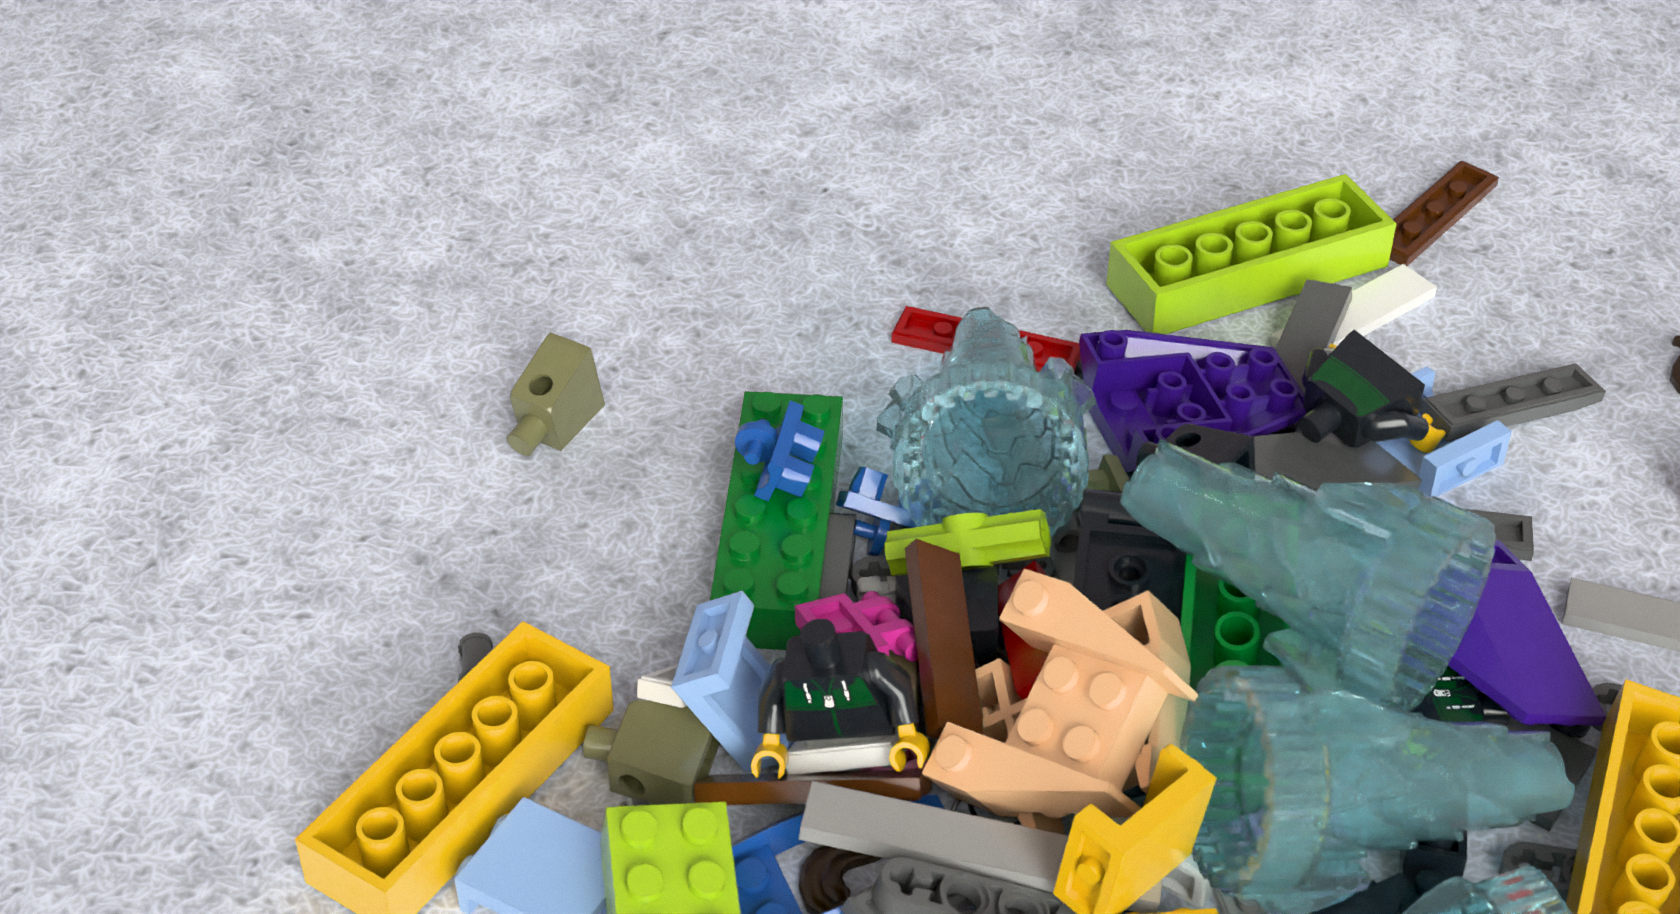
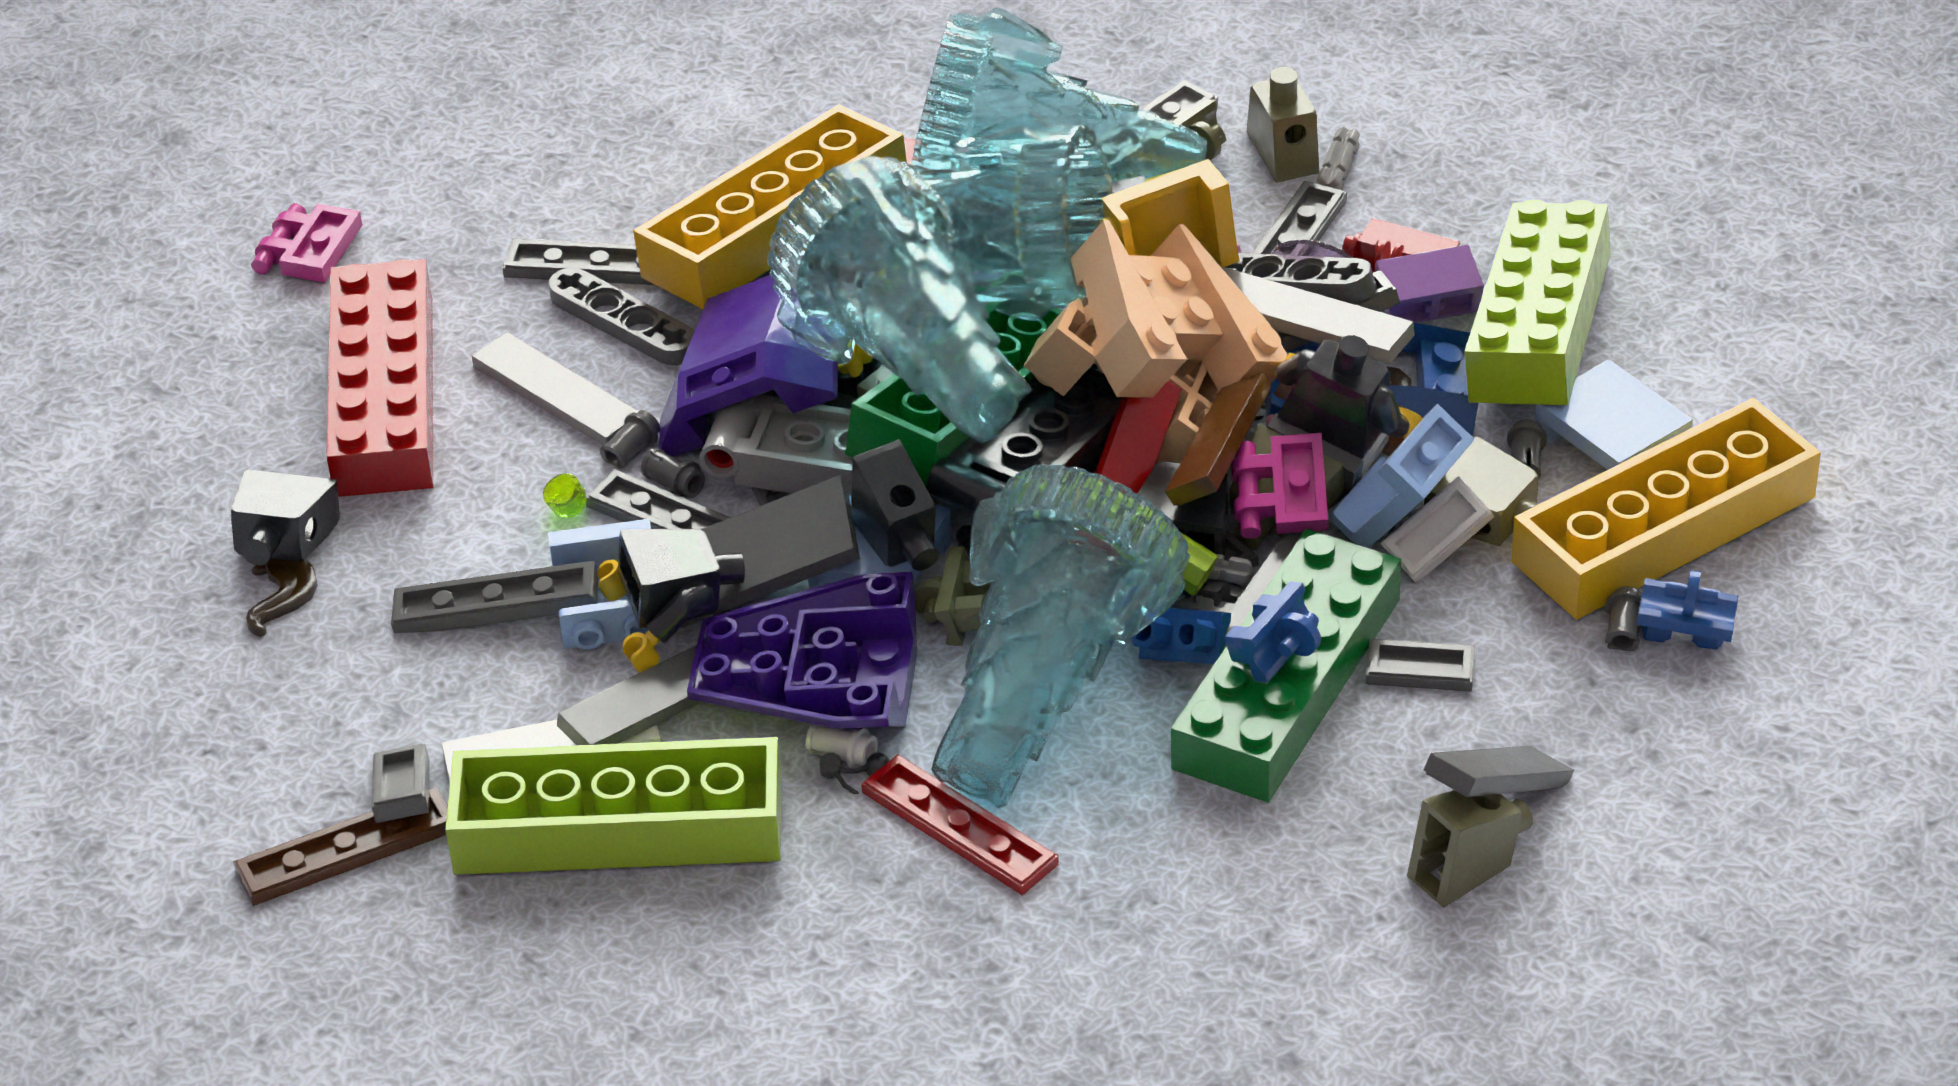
camera: 155 degrees left, 0 degrees up
(412, 664) = (1687, 610): none -> blue hips
(540, 425) = (1497, 770): none -> dark grey tile
(661, 577) = (1420, 665): none -> dark grey tile
(1434, 246) = (400, 783): none -> tile
(1547, 506) = (565, 495): none -> clear neon green hinge
(1550, 577) = (638, 431): none -> dark grey pin

